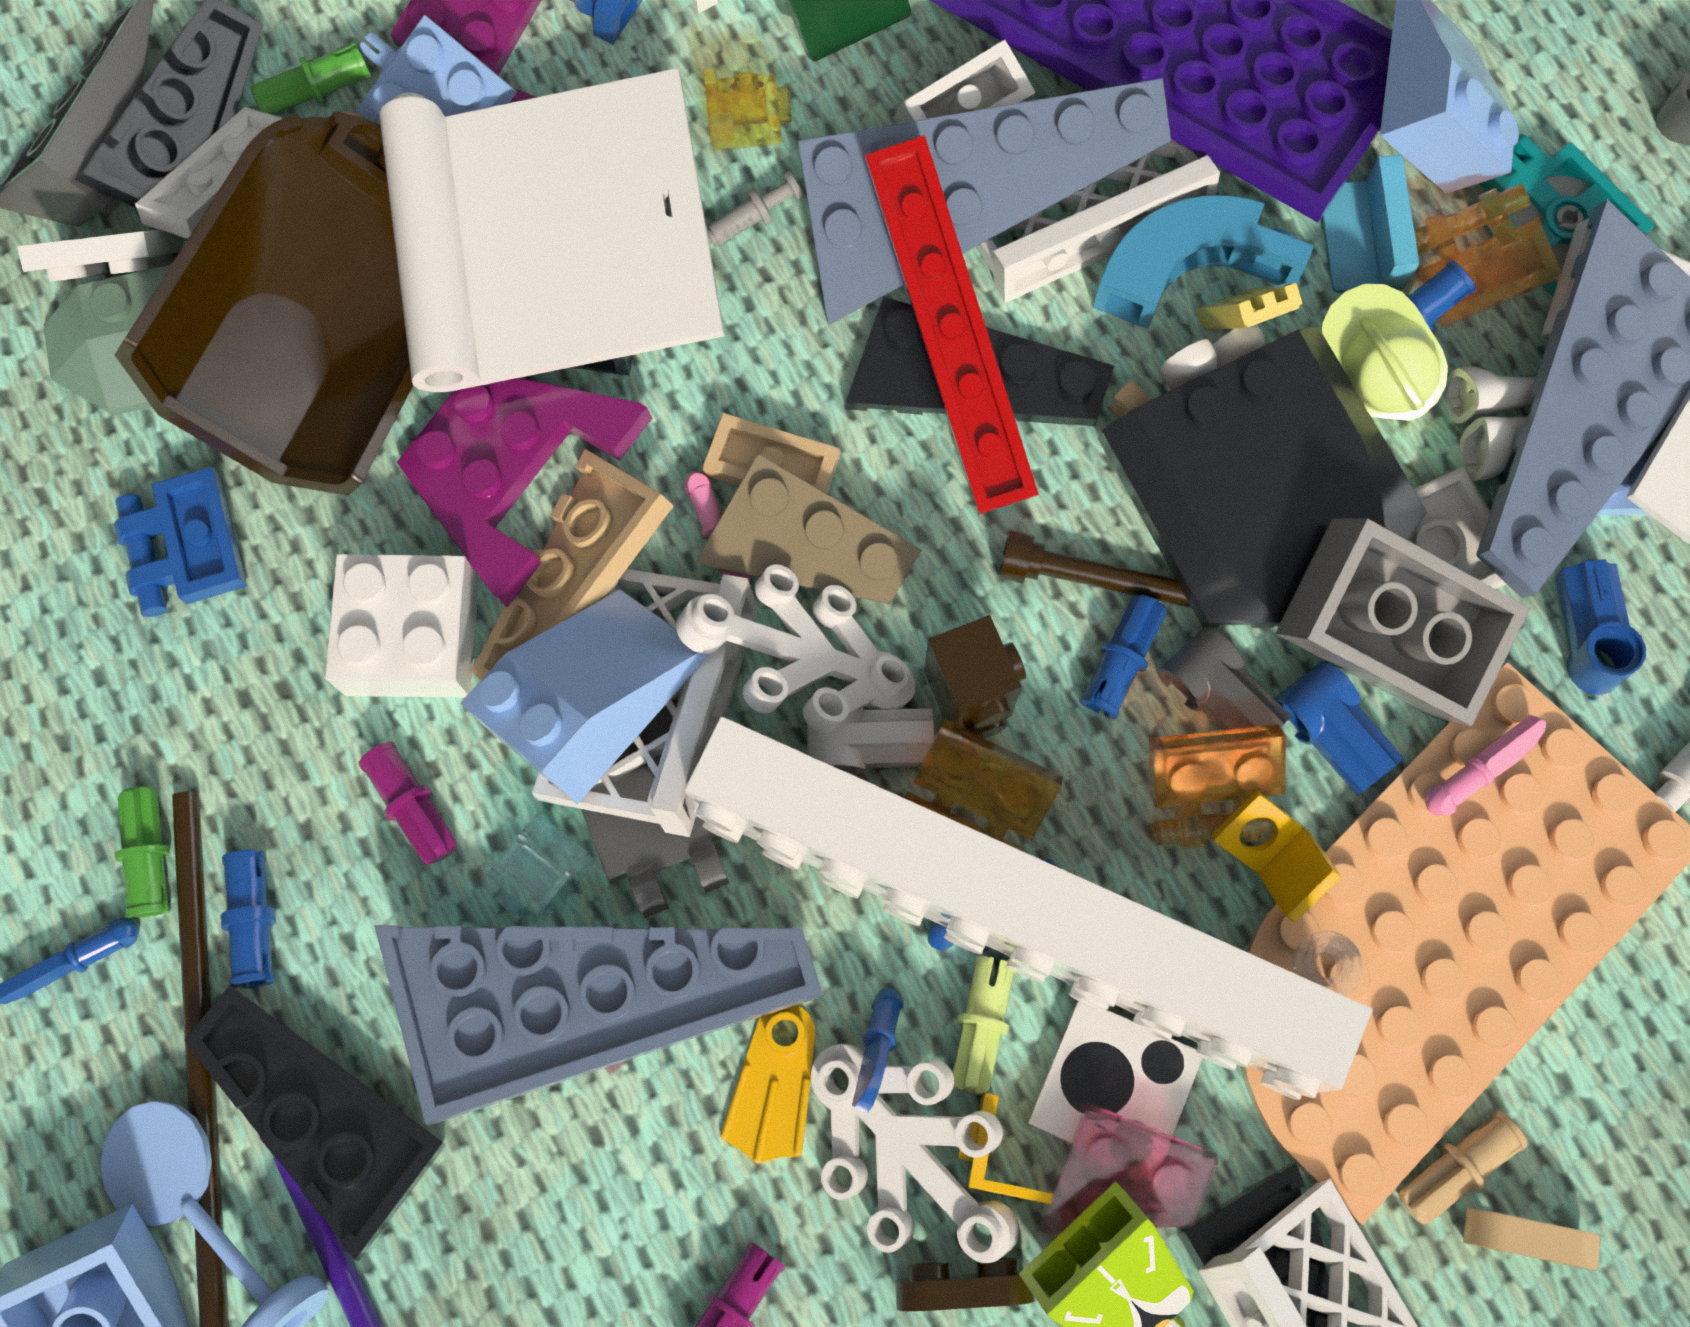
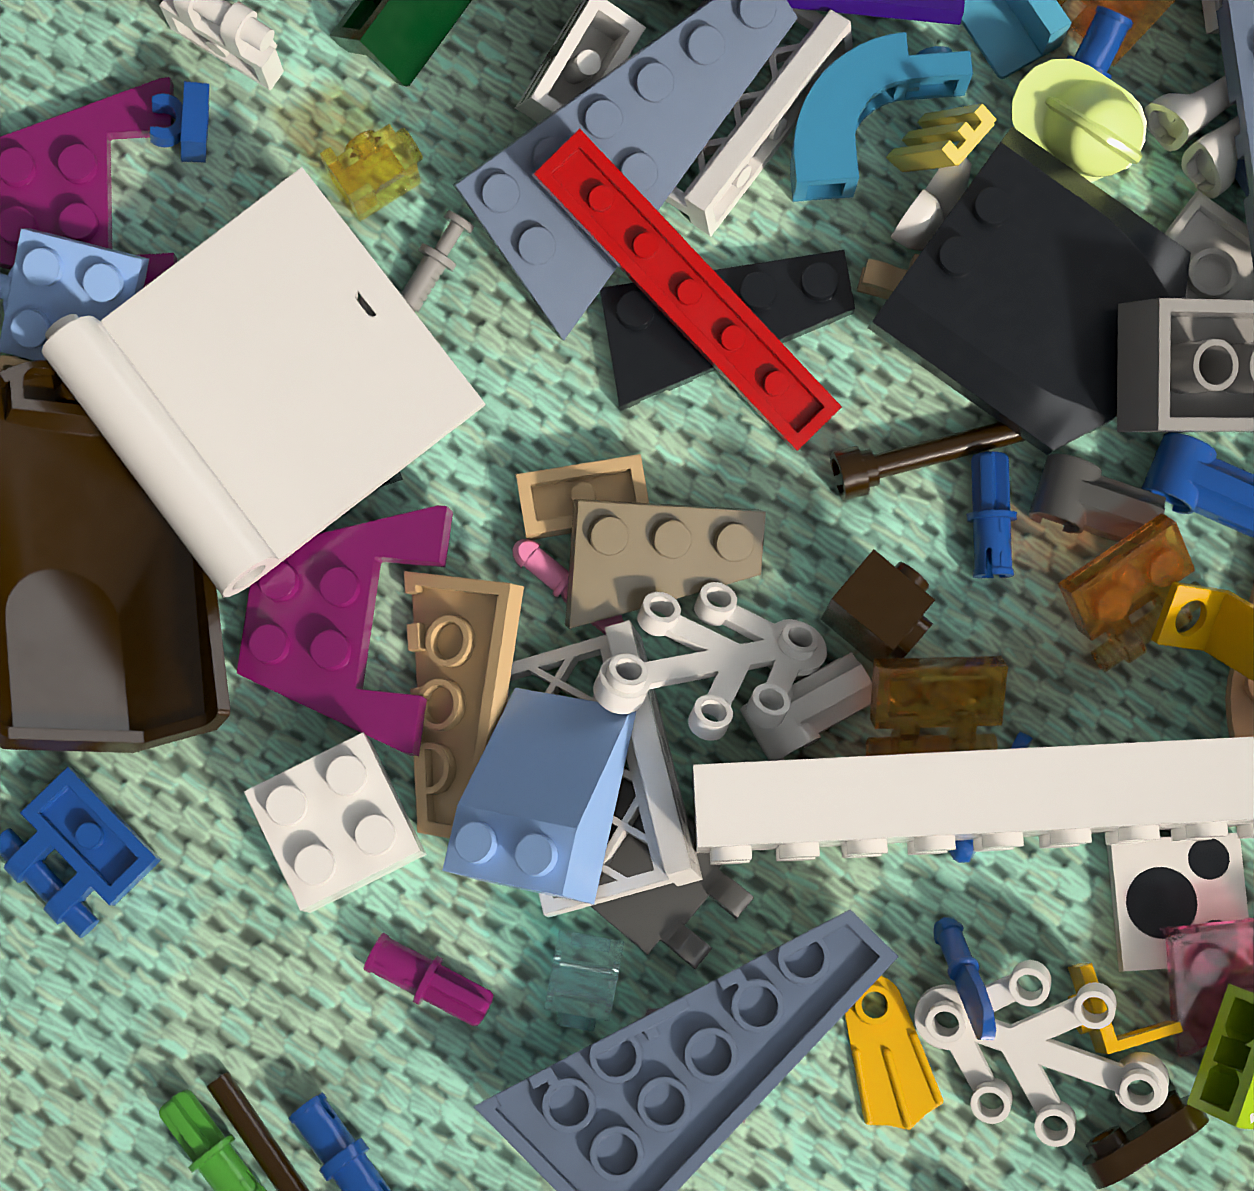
camera: 30 degrees left, 5 degrees up
(982, 1027) = (1041, 908): yellowish green axle -> none

